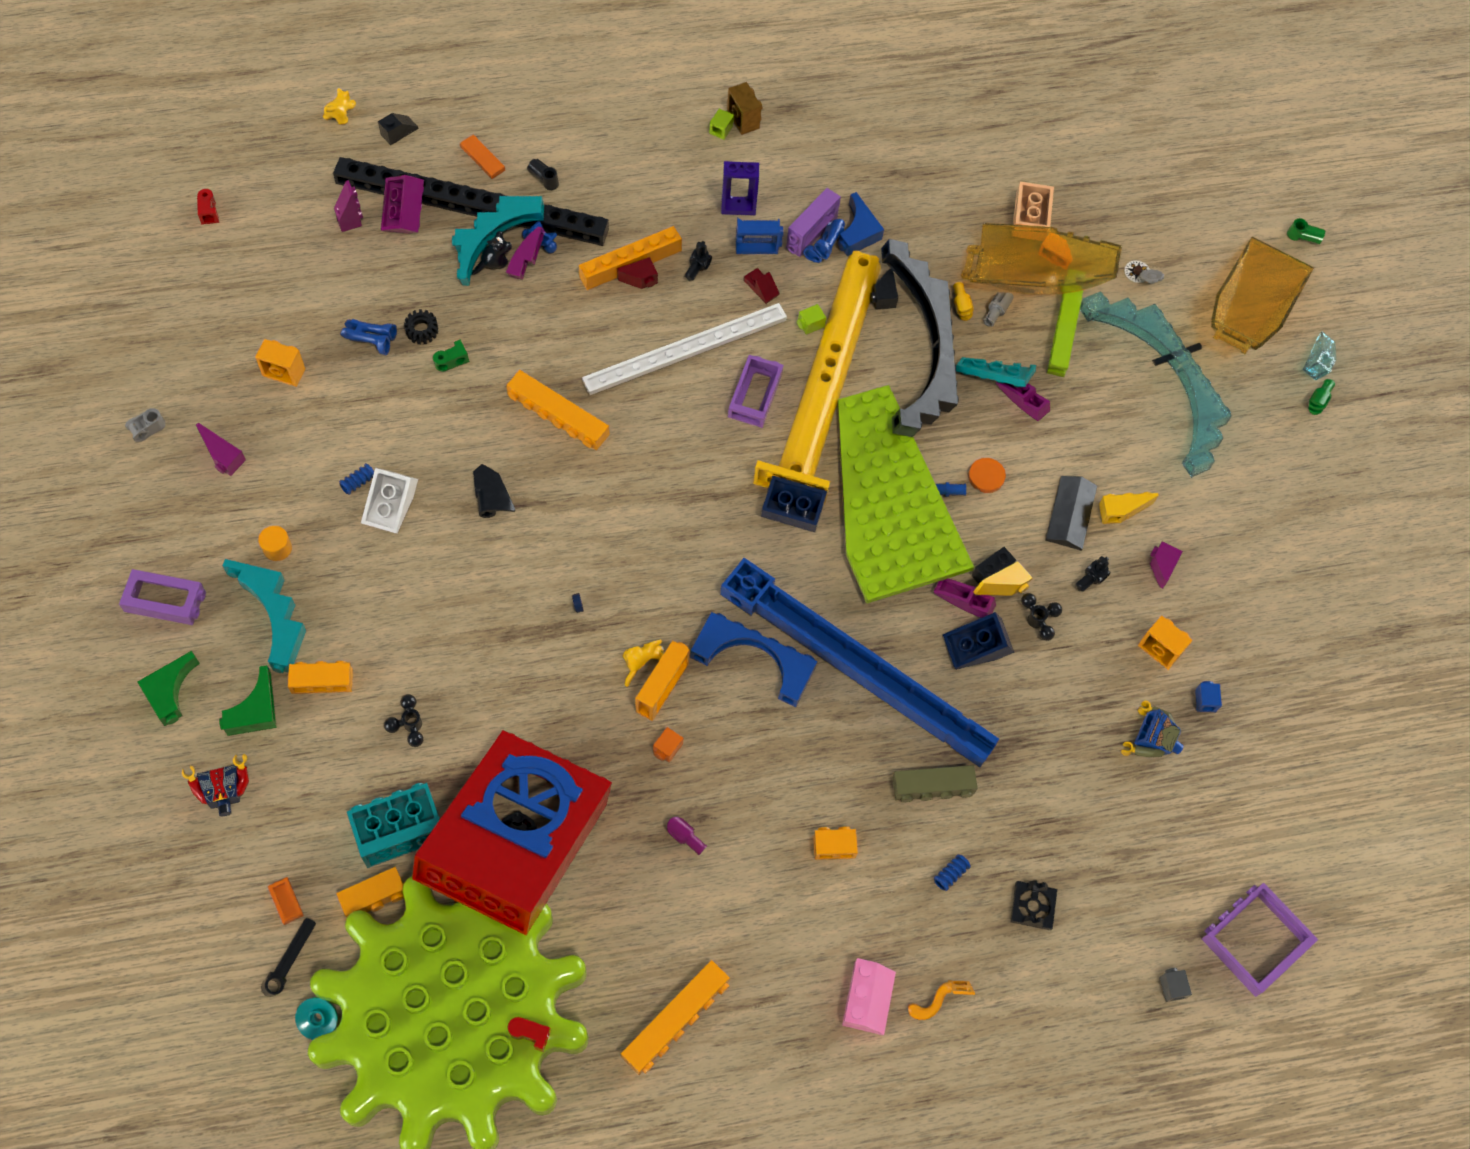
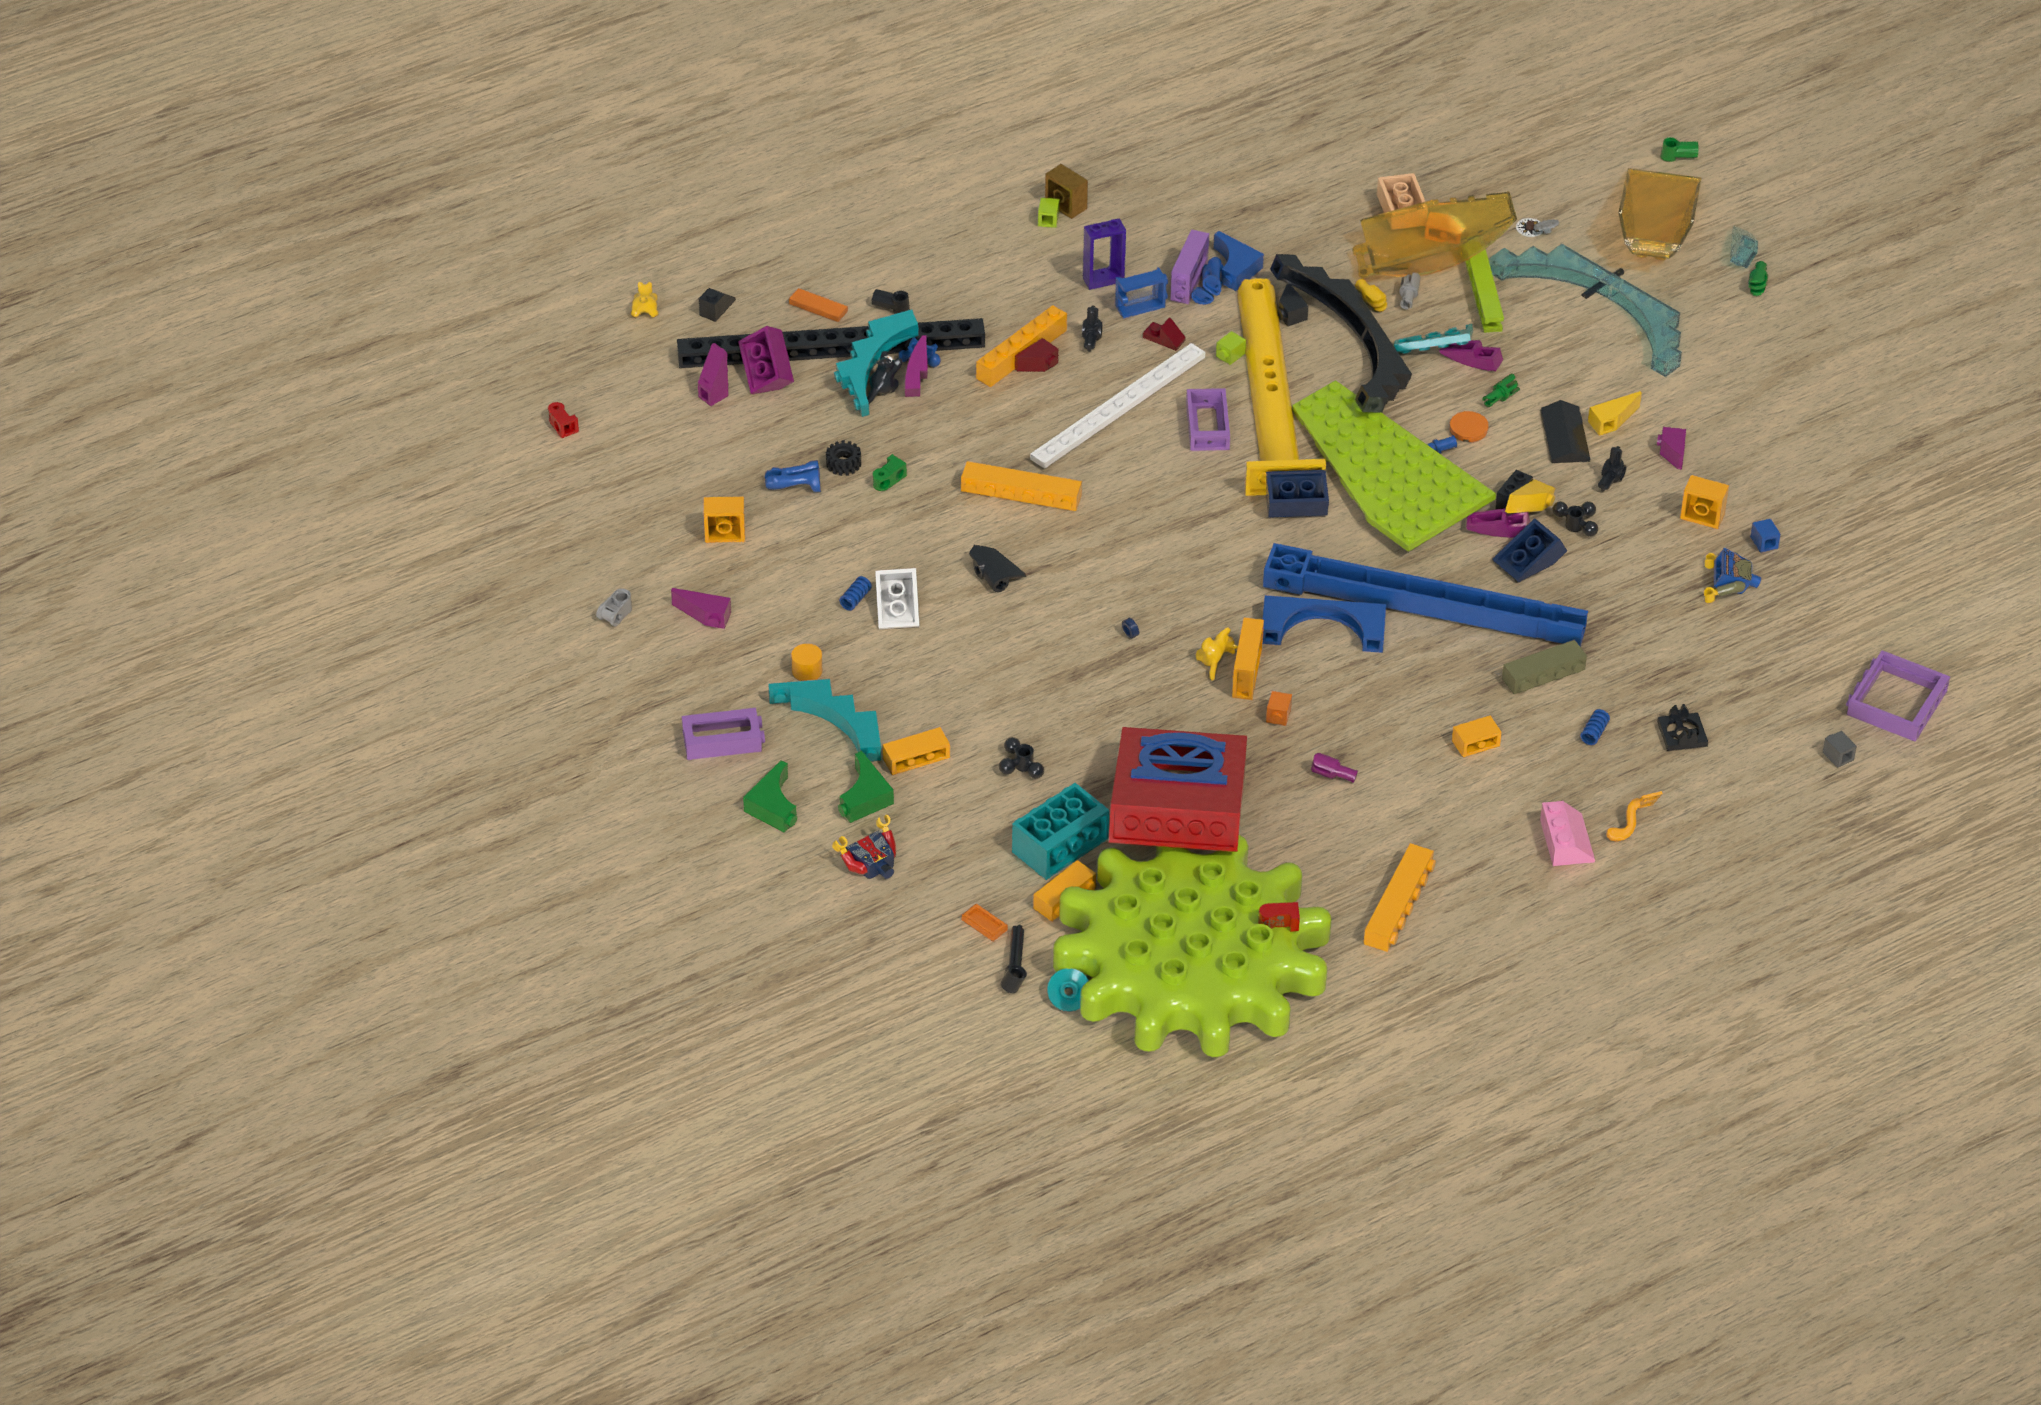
camera: 15 degrees left, 20 degrees down
(1033, 446) = (1502, 390): none -> green arm

